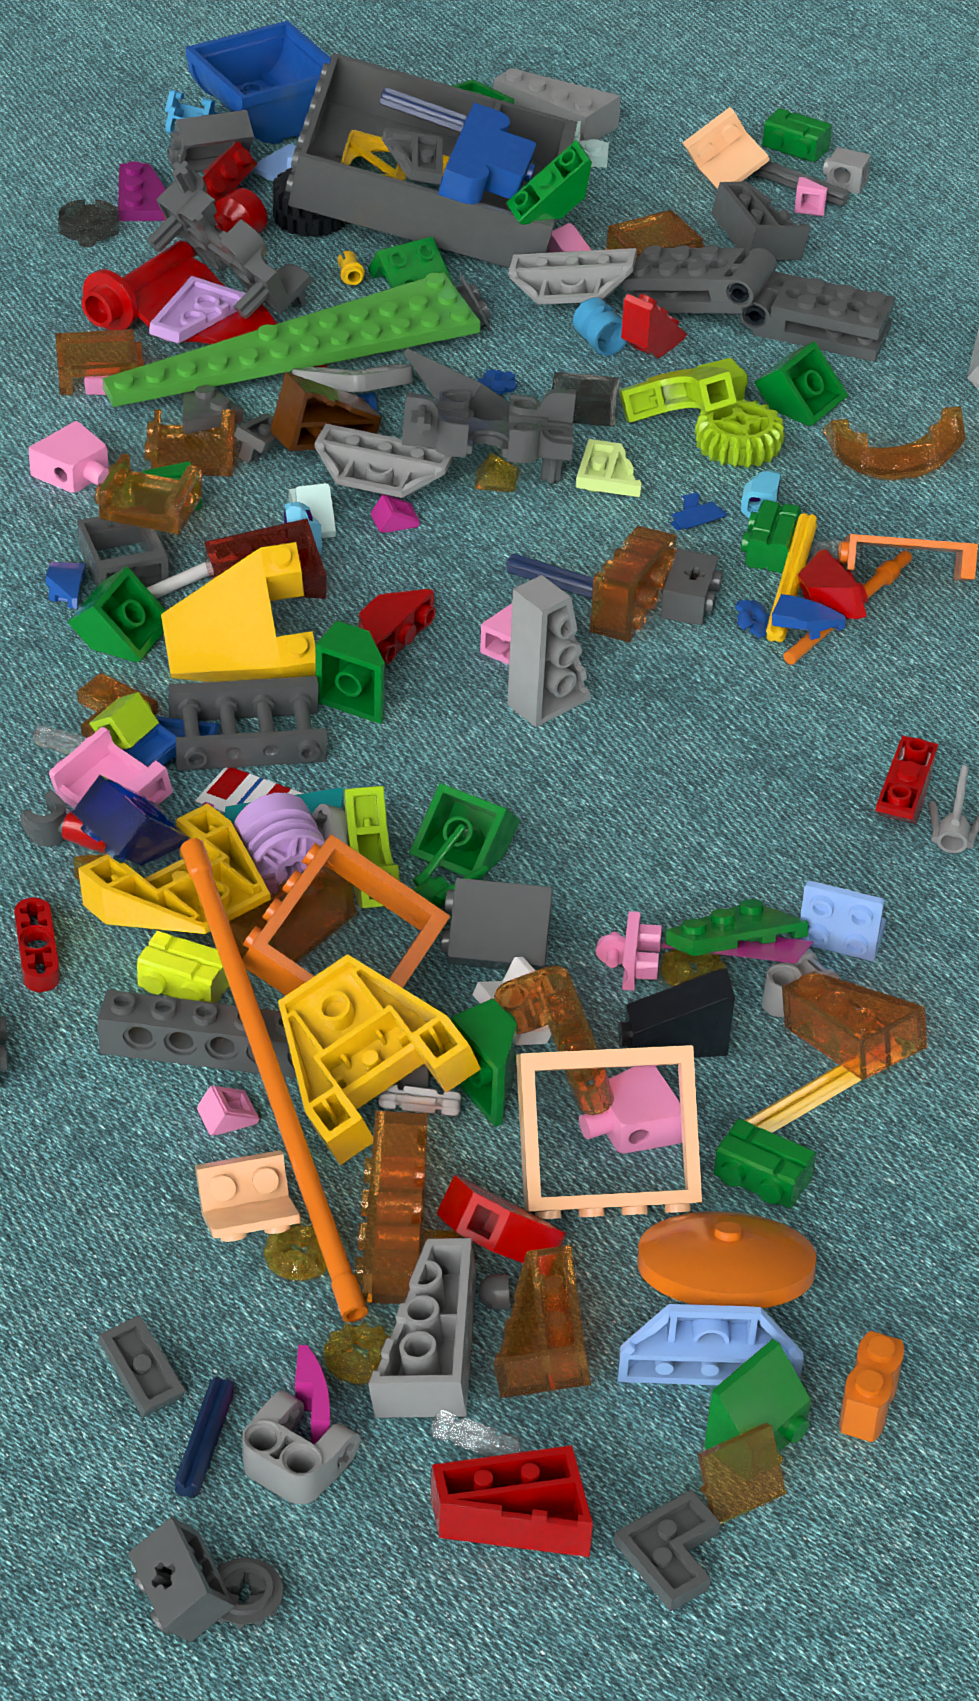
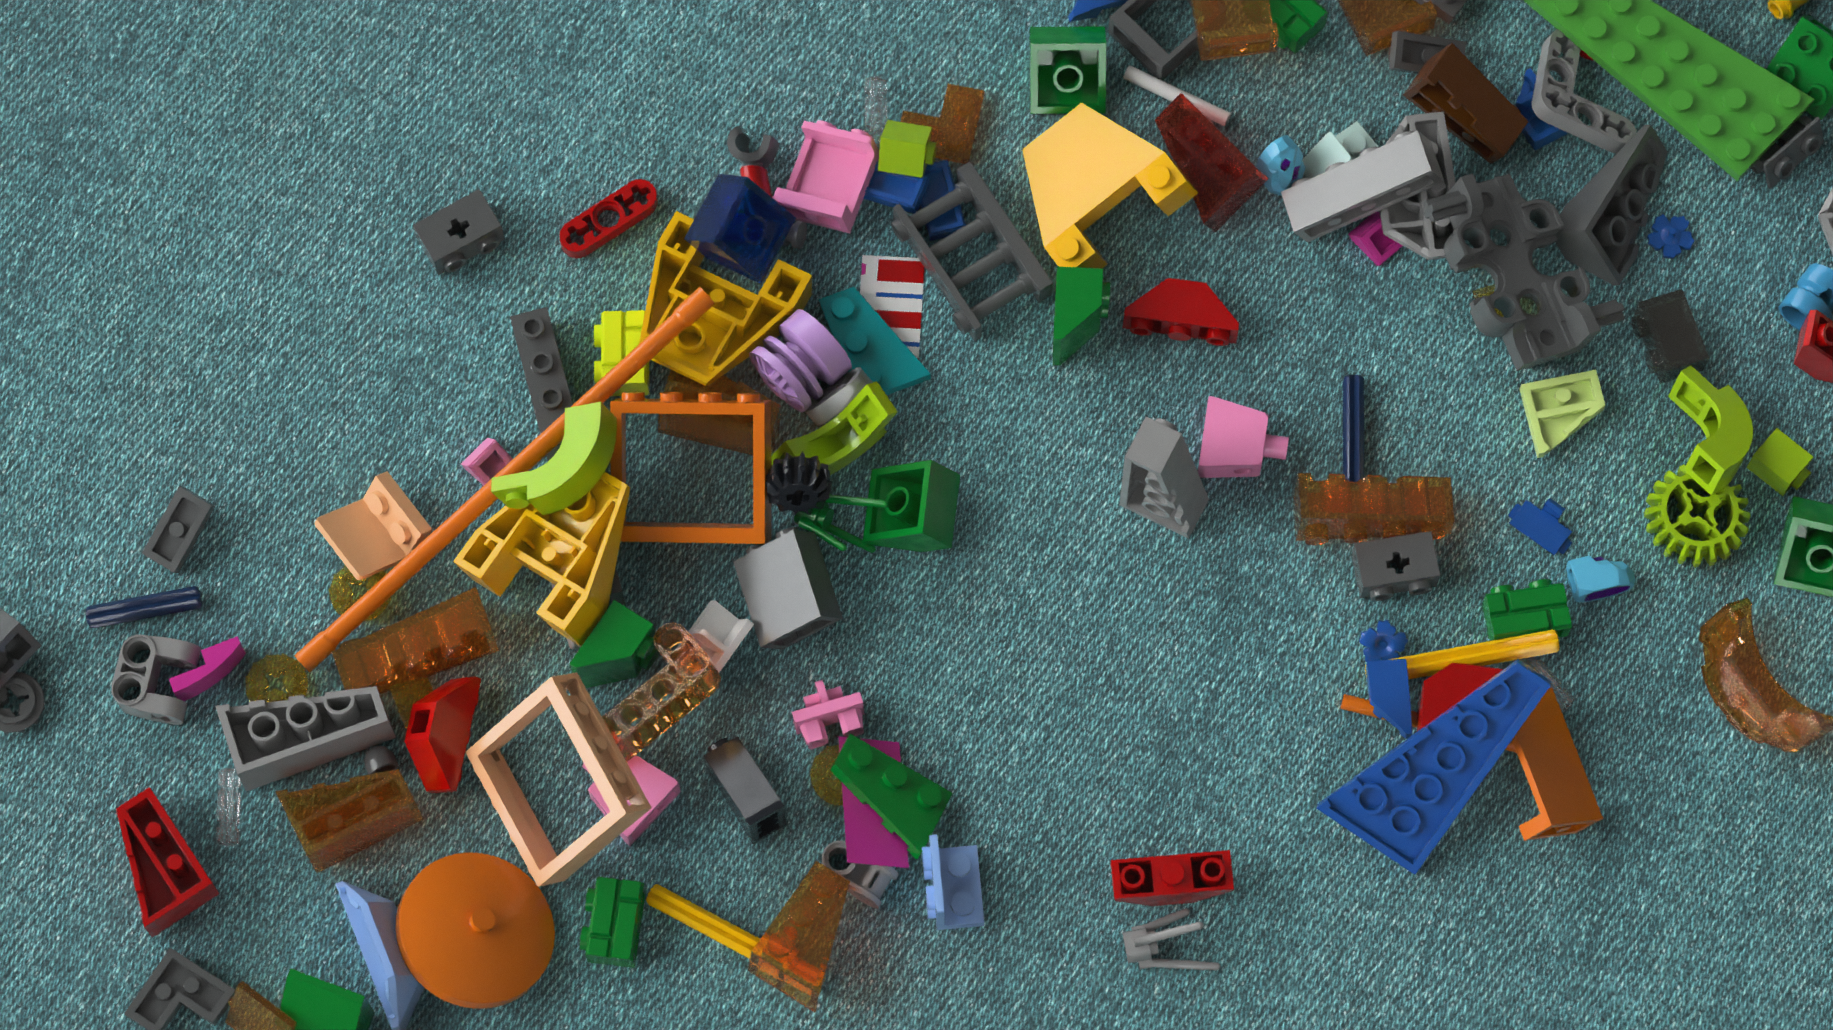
camera: 70 degrees right, 30 degrees up
(290, 968) = (572, 470): none -> lime arch
(357, 482) = (1362, 185): none -> light grey brick
(412, 861) = (798, 483): none -> black gear
(898, 615) = (1425, 782): none -> blue wing

